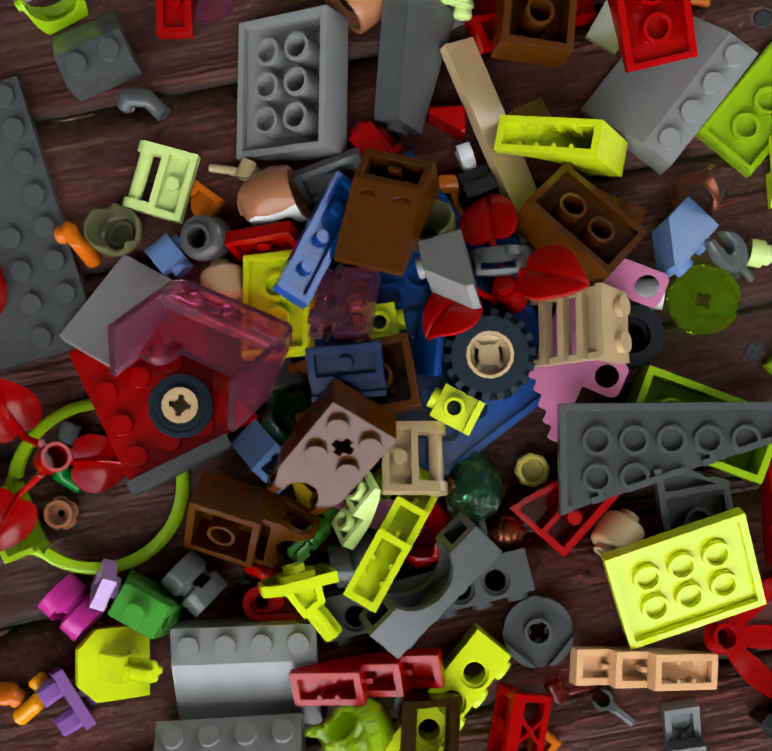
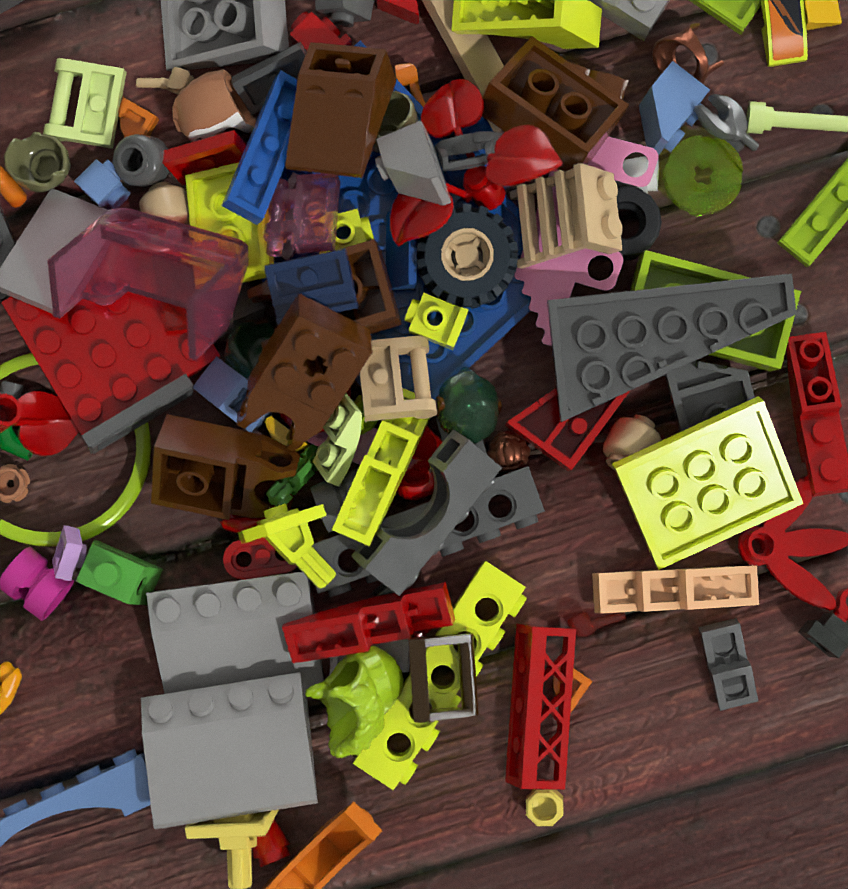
camera: 10 degrees left, 0 degrees up
(76, 714) = (52, 699): medium lavender hips -> none
(115, 664) = (89, 641): neon yellow piece -> none
(144, 98) = (54, 11): dark grey arm -> none
(181, 578) = (167, 543): dark grey wheel -> none
(193, 409) = (144, 361): black wheel -> none
(474, 181) = (435, 67): pearl dark grey piece -> none
(531, 470) = (530, 382): light yellow tile -> none
(537, 651) = (575, 554): dark grey plate -> none
(613, 707) = (648, 638): dark grey hand -> none

